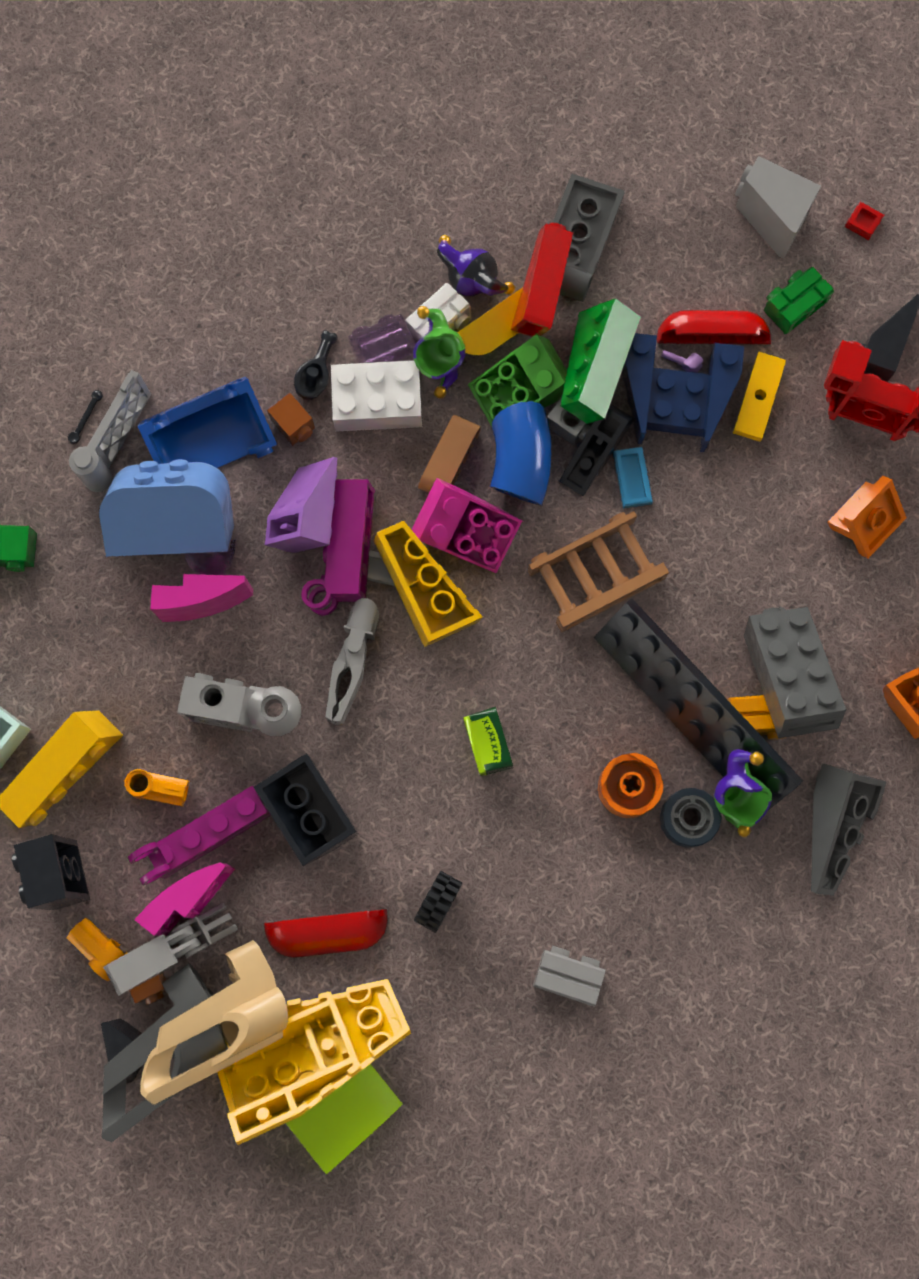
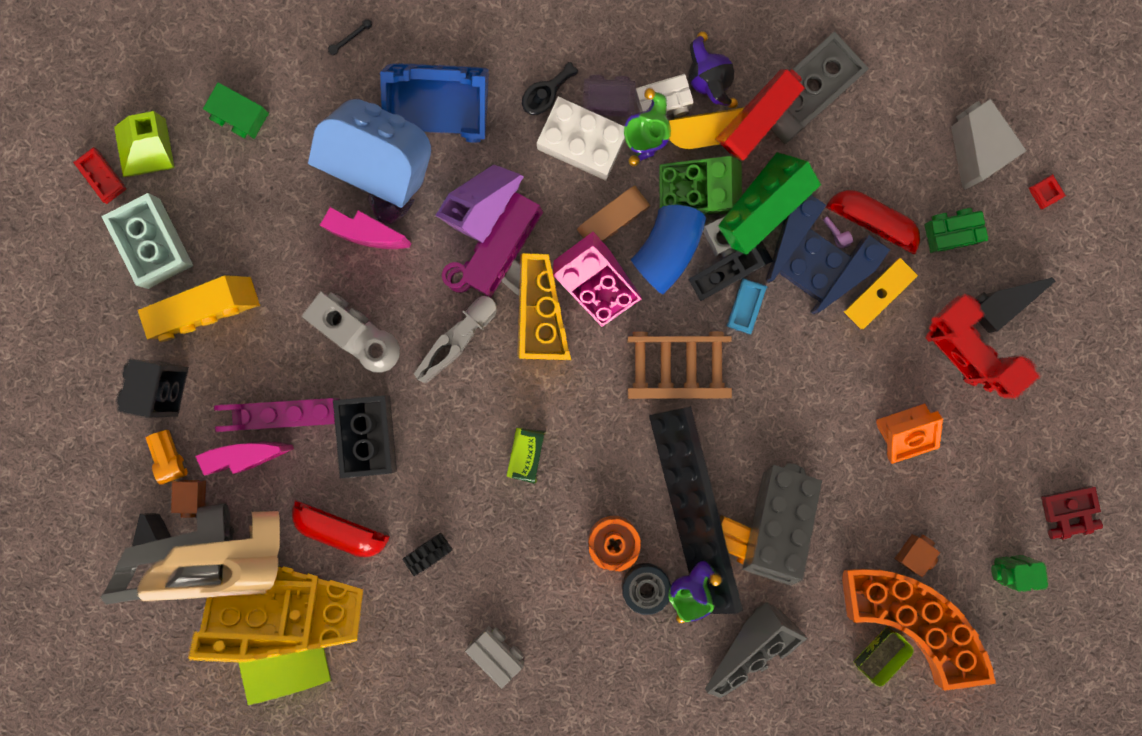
camera: 30 degrees right, 10 degrees up
(93, 461) = (336, 81): light grey piece -> none
(157, 954) = (201, 489): light grey arm -> none
(159, 788) = (266, 361): light orange piece -> none
(291, 419) = (506, 124): dark orange brick -> none

